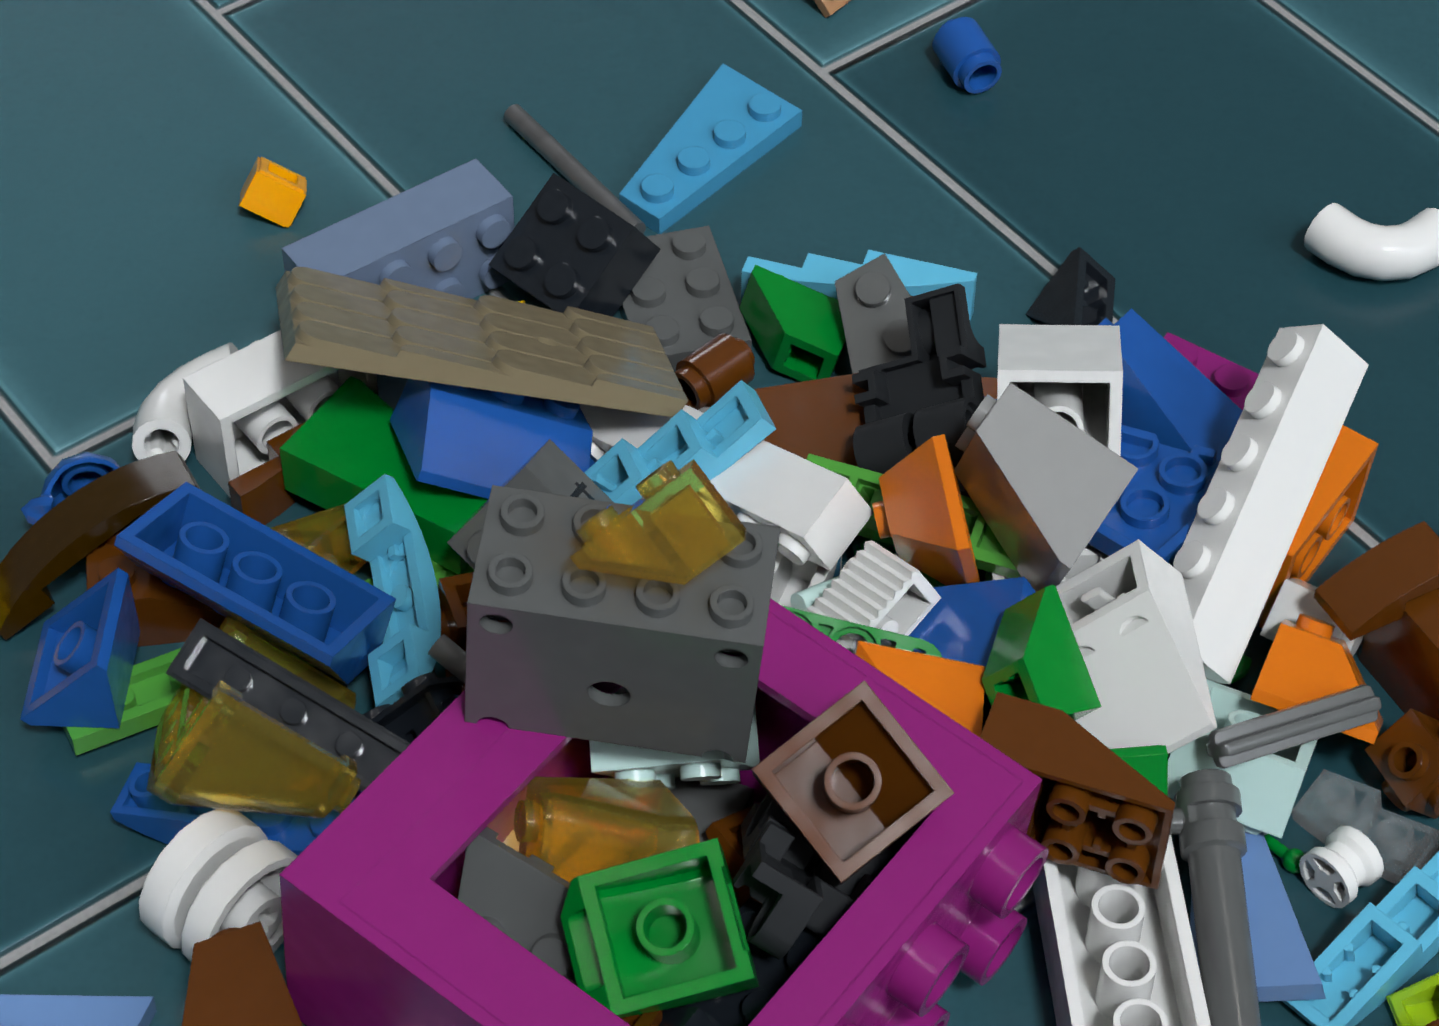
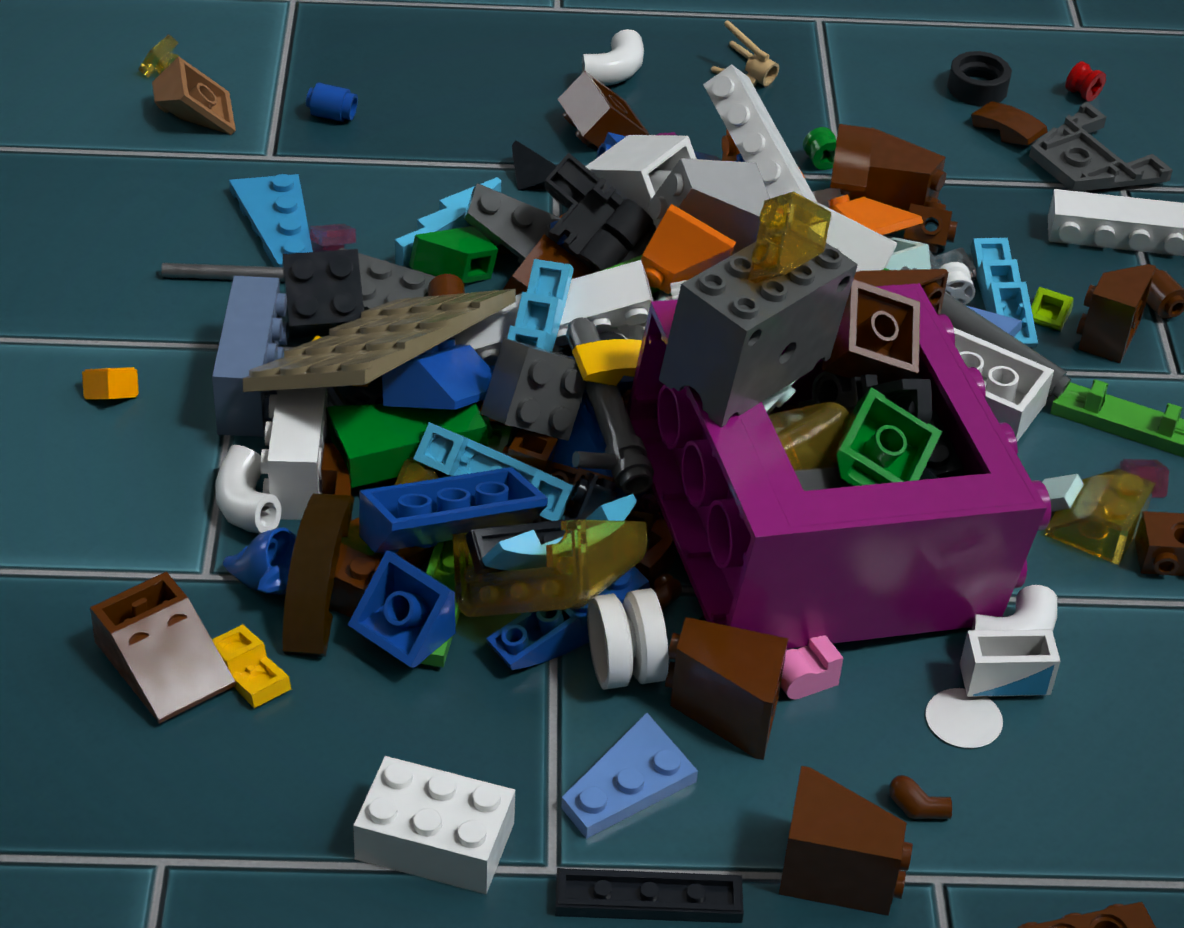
camera: 55 degrees left, 5 degrees down
(364, 740) = (526, 550): none -> medium azure slope
(719, 205) = (333, 236): none -> clear pink plate
(1249, 292) = (597, 111): none -> reddish brown slope
(1293, 726) = (905, 230): dark grey axle -> none

